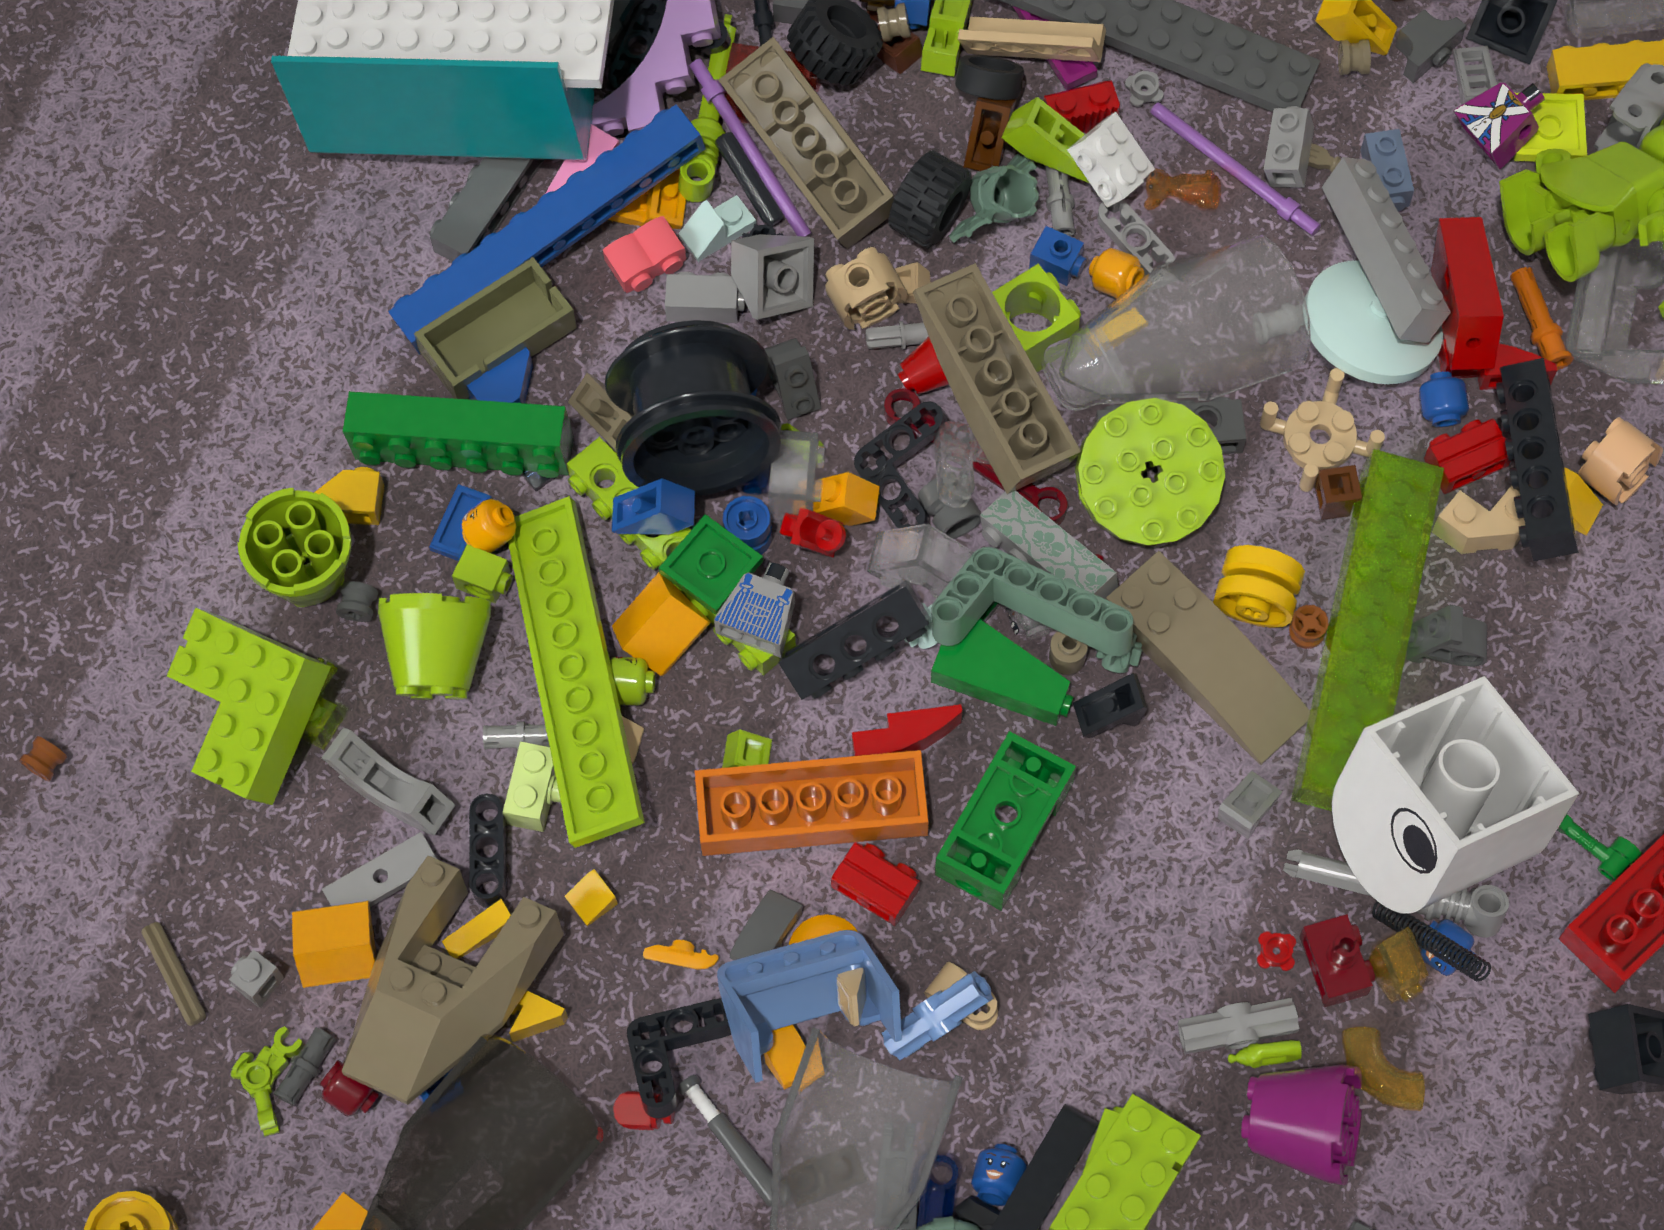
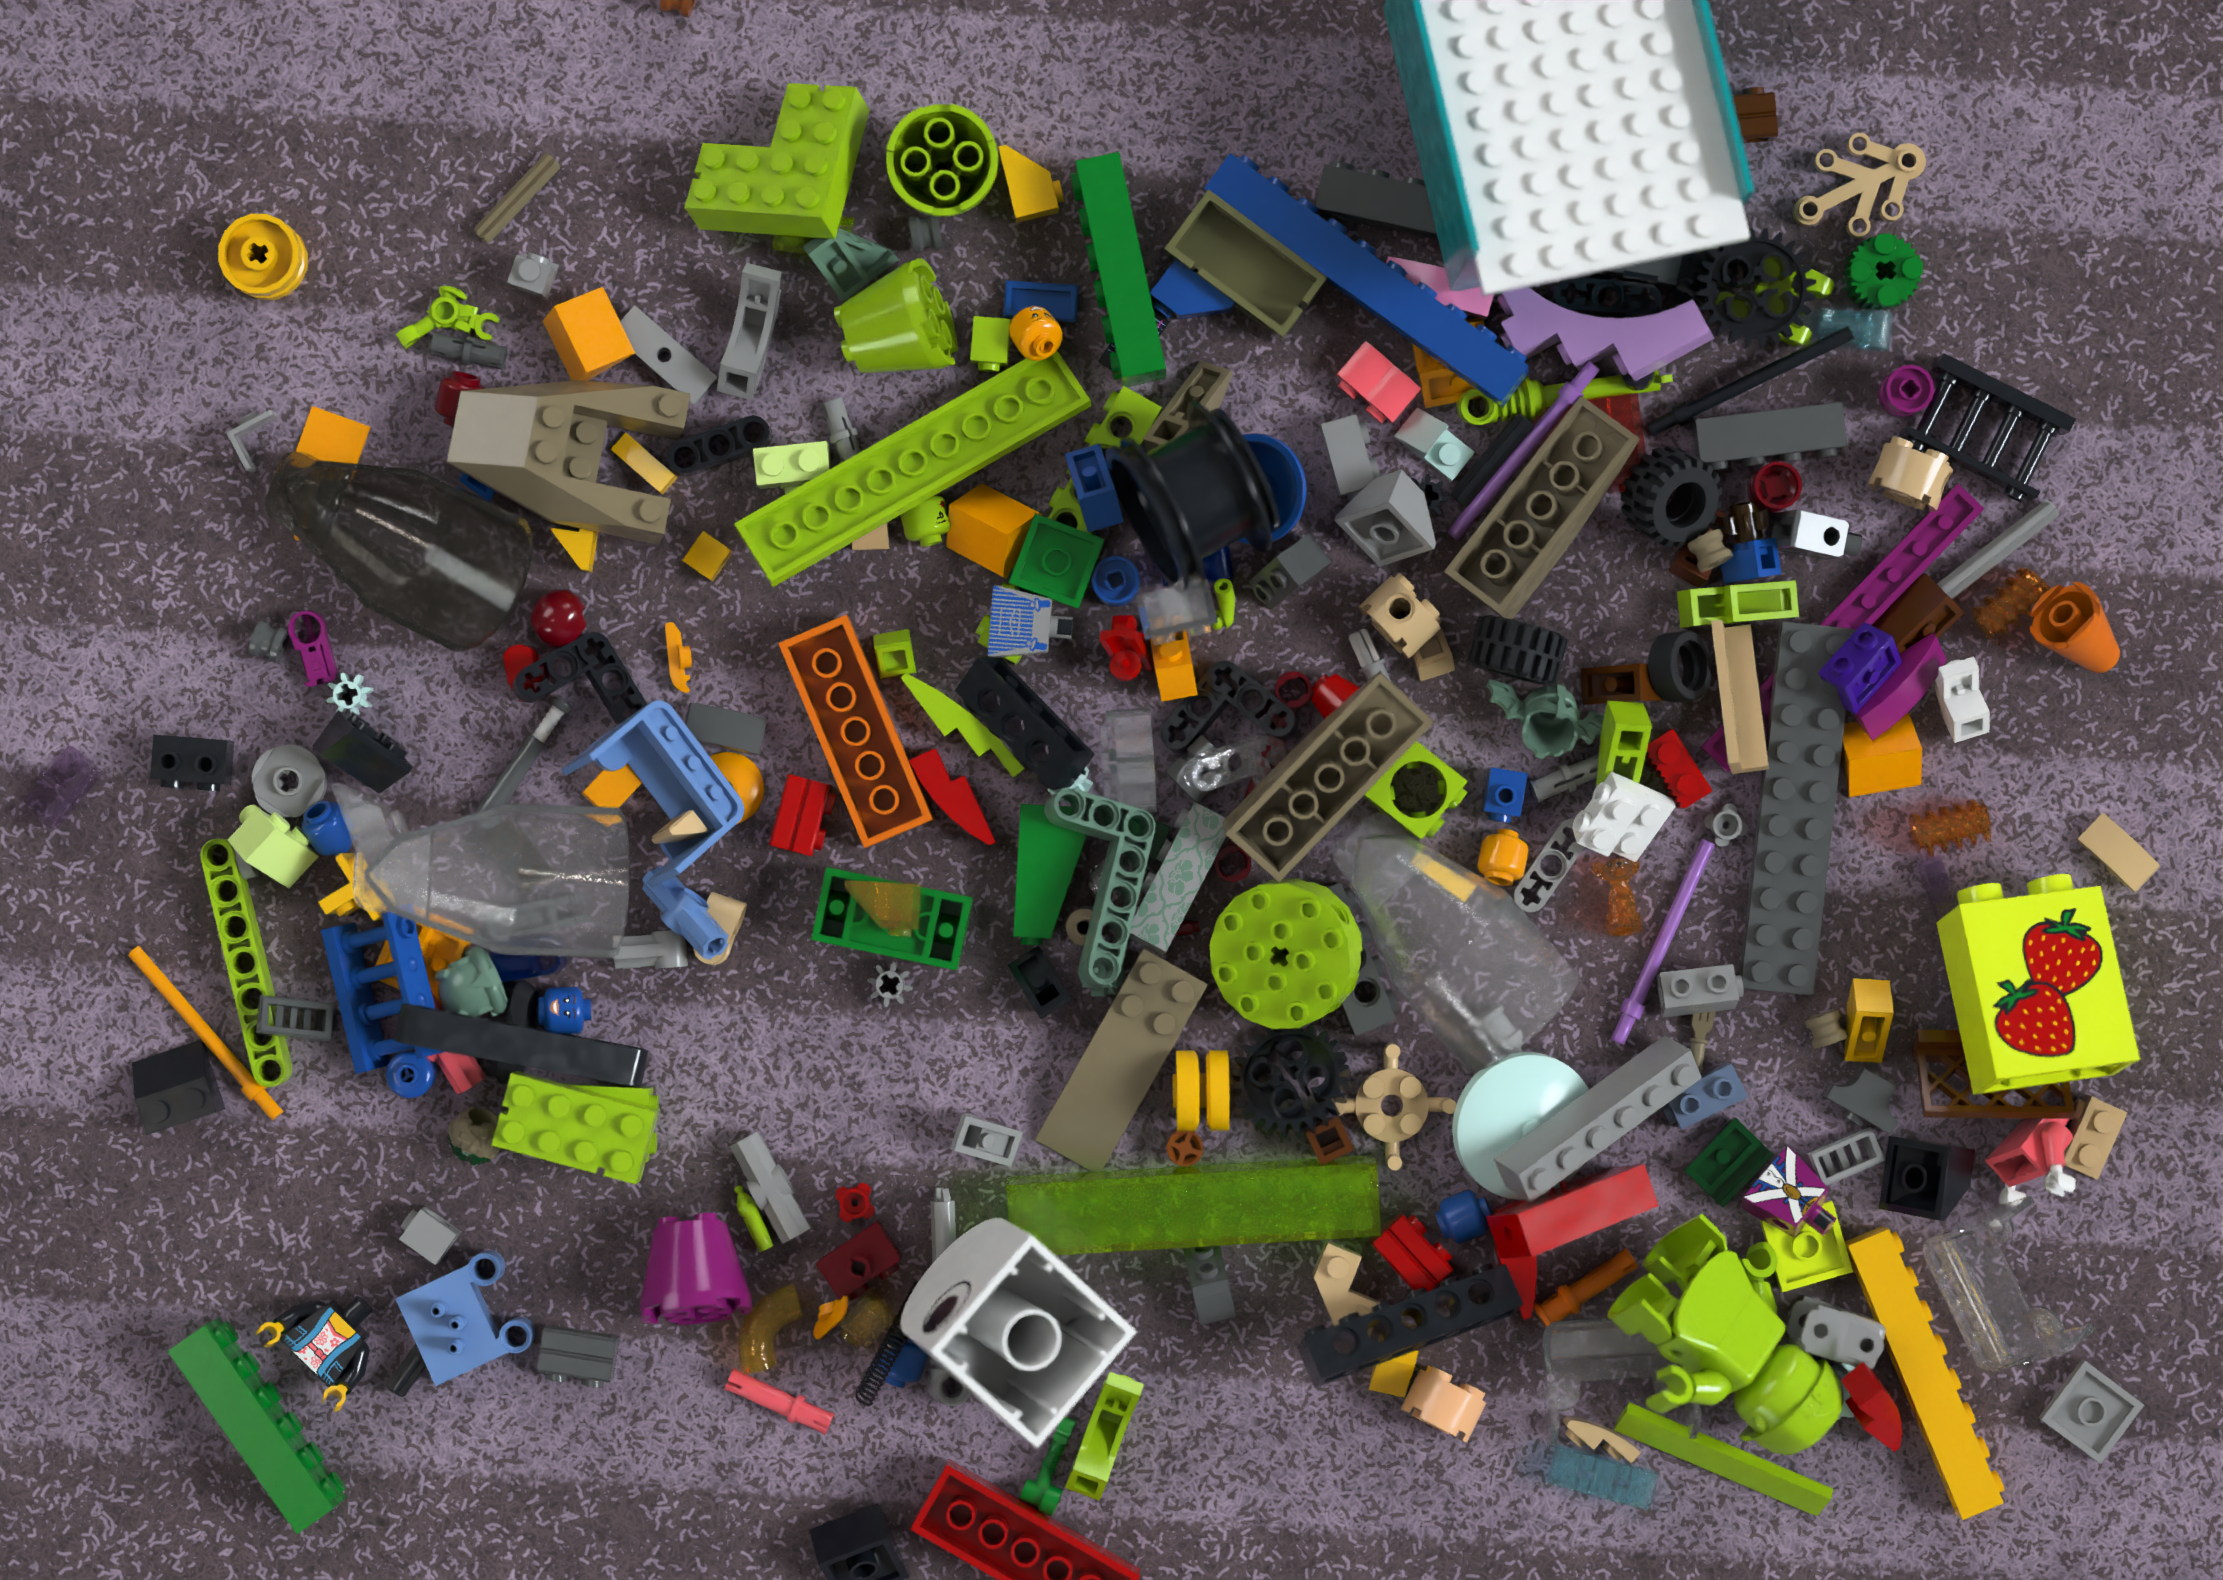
camera: 70 degrees right, 20 degrees up
(357, 678) = (849, 261): none -> sand green wing
(601, 1057) = (558, 617): none -> dark red hair
(824, 715) = (951, 716): none -> lime slope
(967, 1059) = (660, 950): none -> light grey piece
(992, 802) = (889, 904): none -> clear yellow slope
(1063, 857) = (891, 974): none -> light grey gear
(1273, 506) = (1263, 1100): none -> black gear
(1386, 1003) = (829, 1316): none -> light orange piece
(1453, 169) = (1728, 1162): none -> dark green plate
(1469, 1071) = (779, 1401): none -> coral pin
(1601, 796) = (1103, 1435): none -> lime arch

